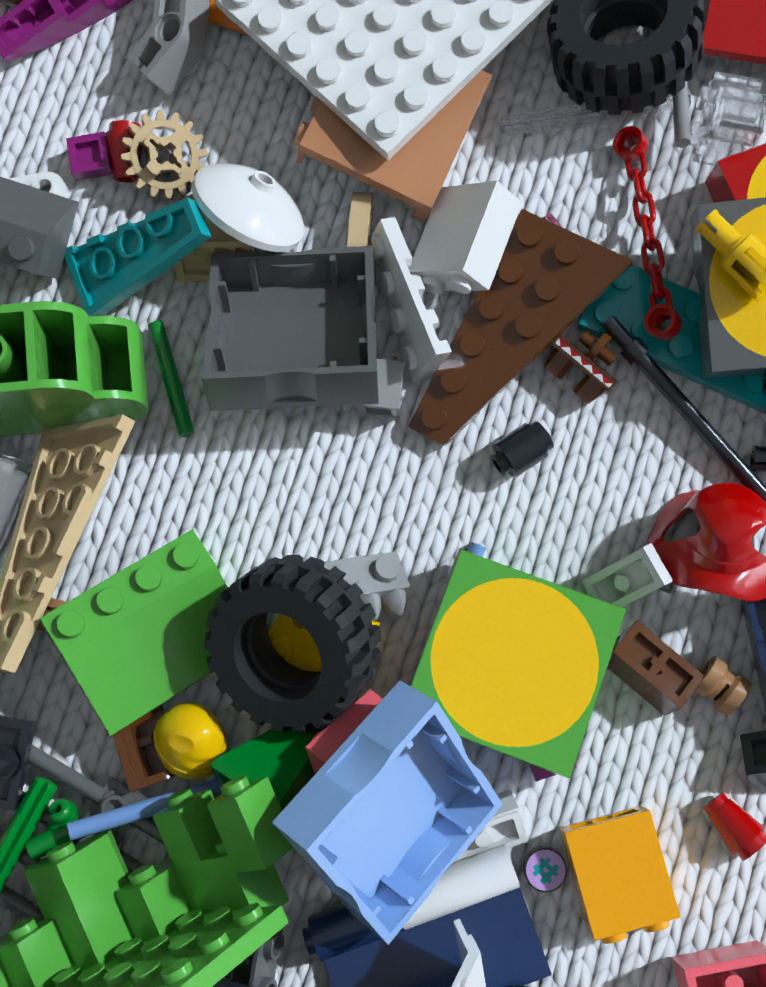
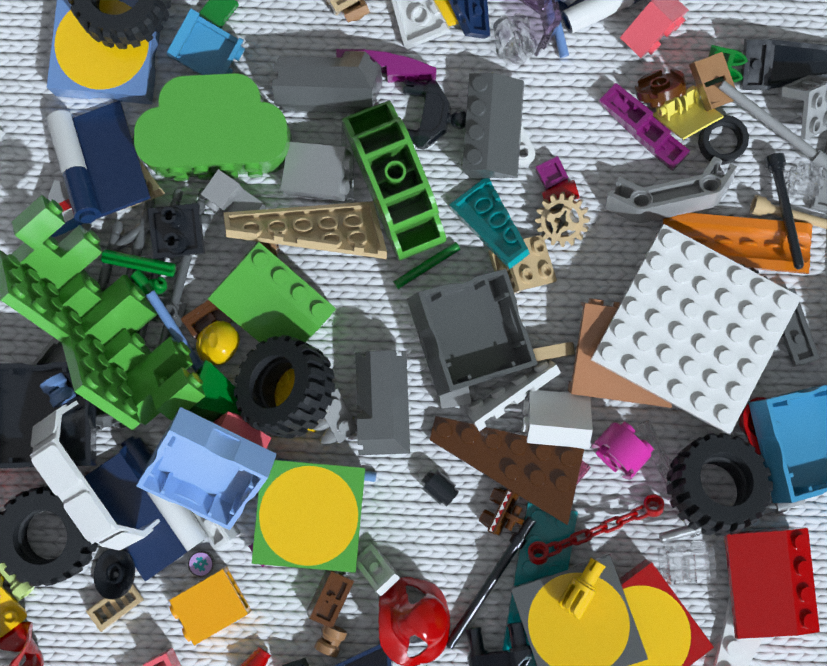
camera: 70 degrees right, 5 degrees up
(249, 206) = (540, 282): white dish -> none
(363, 495) = (384, 403): none -> dark grey brick
(536, 159) = (622, 449): none -> dark pink brick

